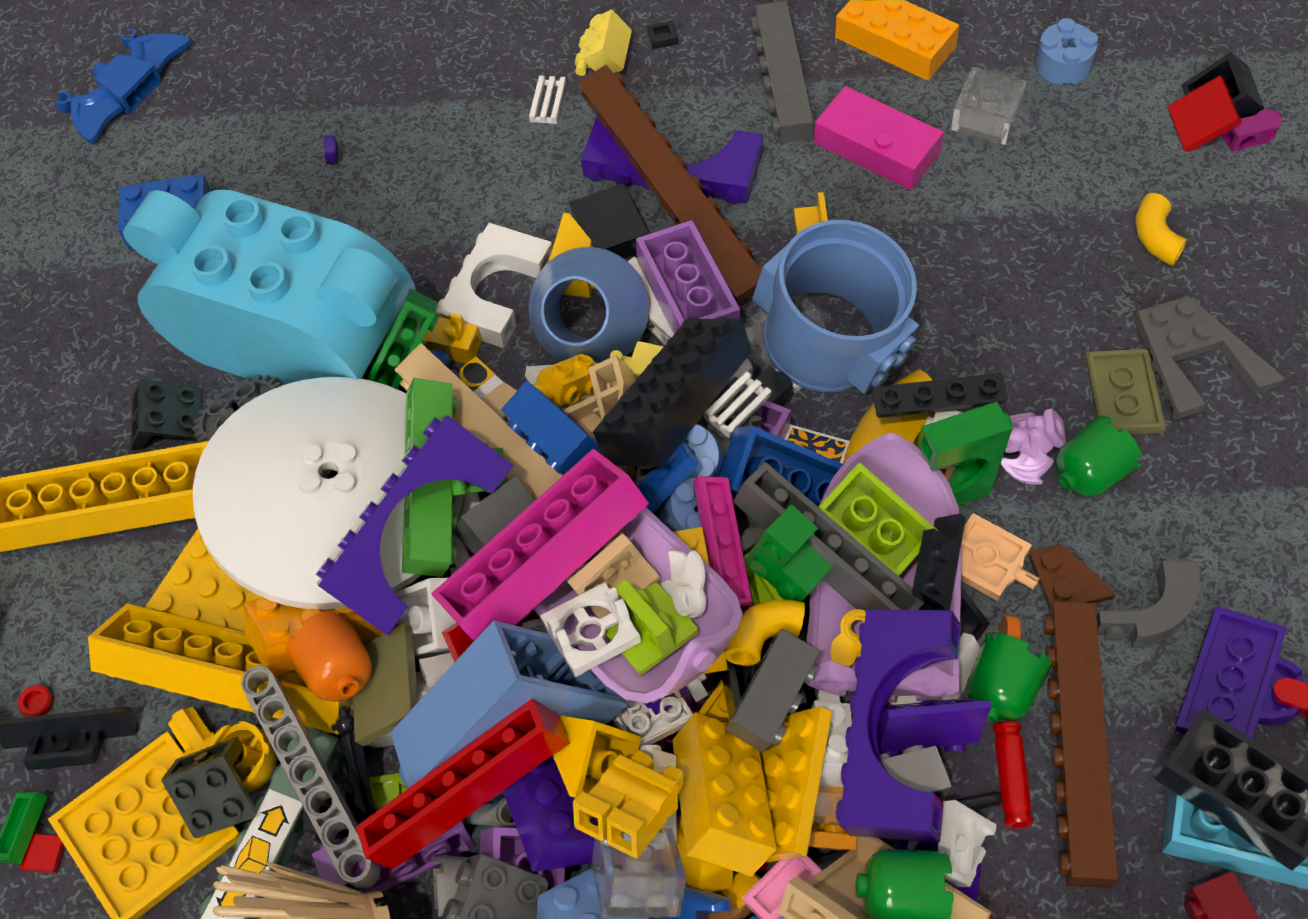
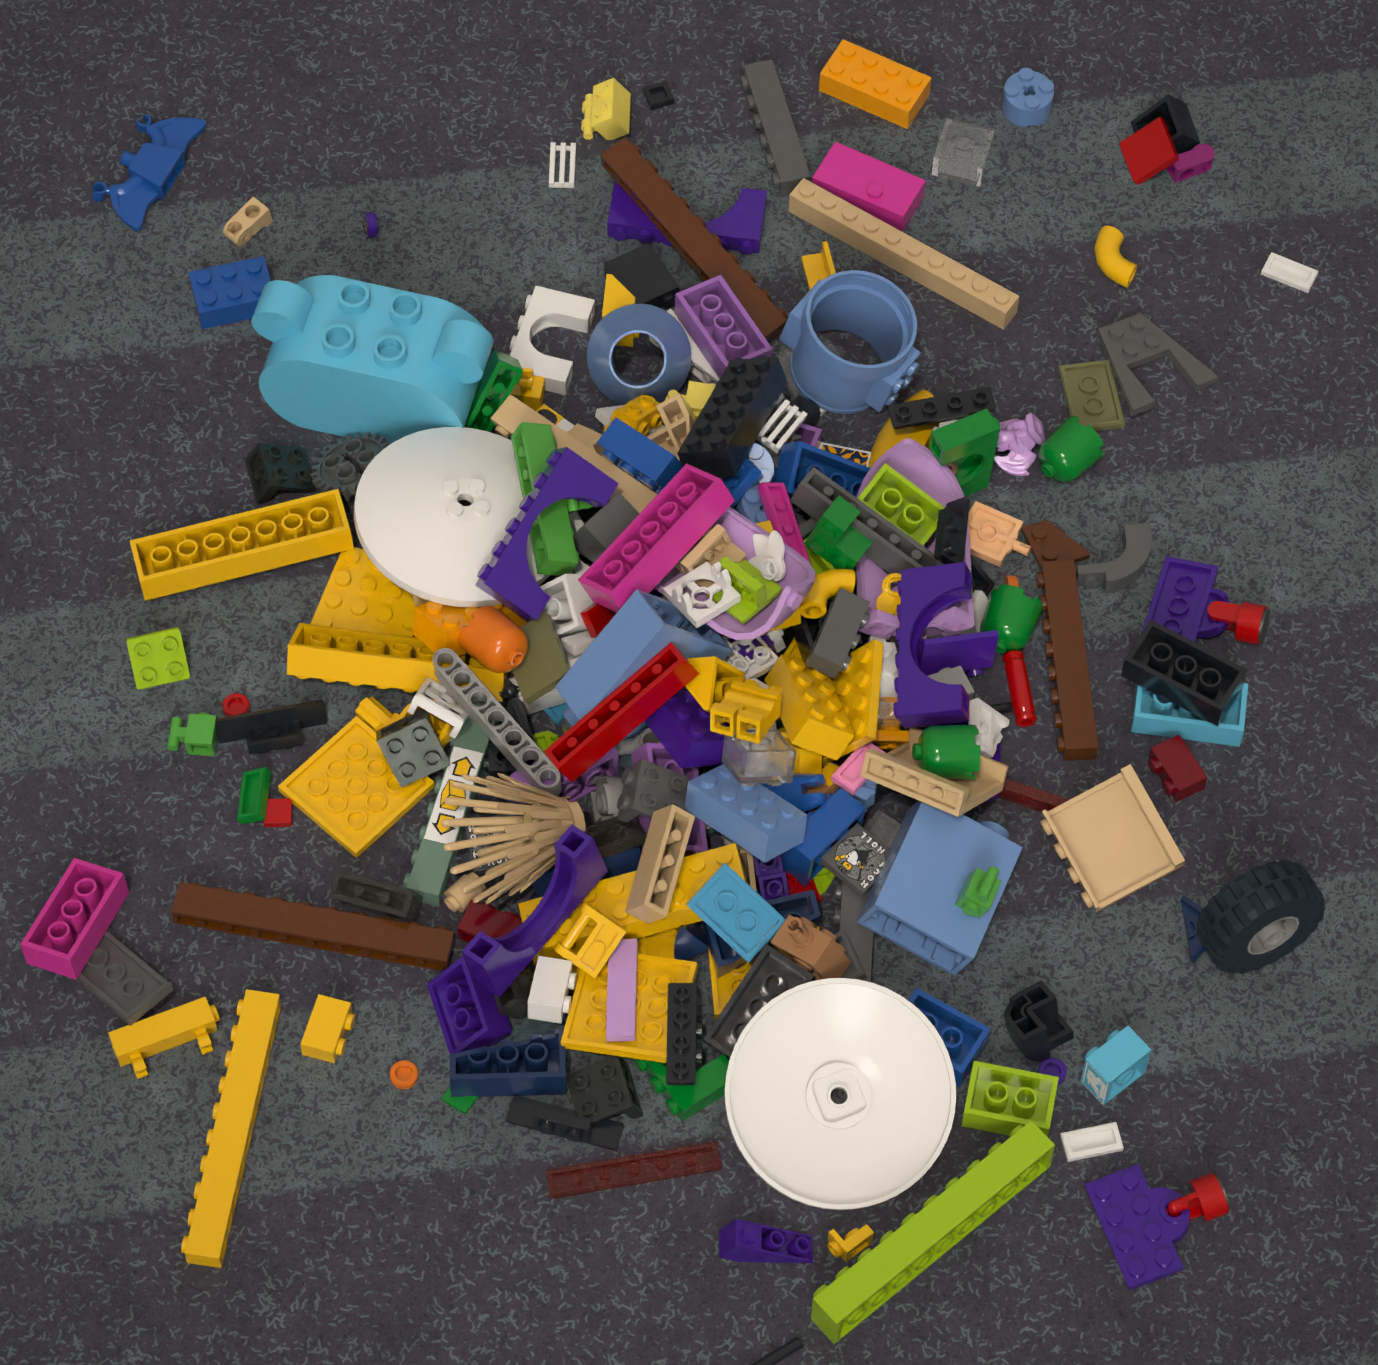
camera: 15 degrees left, 0 degrees up
(203, 140) = (247, 222): none -> tan leg
(240, 715) = (439, 707): none -> white piece
(915, 214) = (903, 253): none -> tan brick

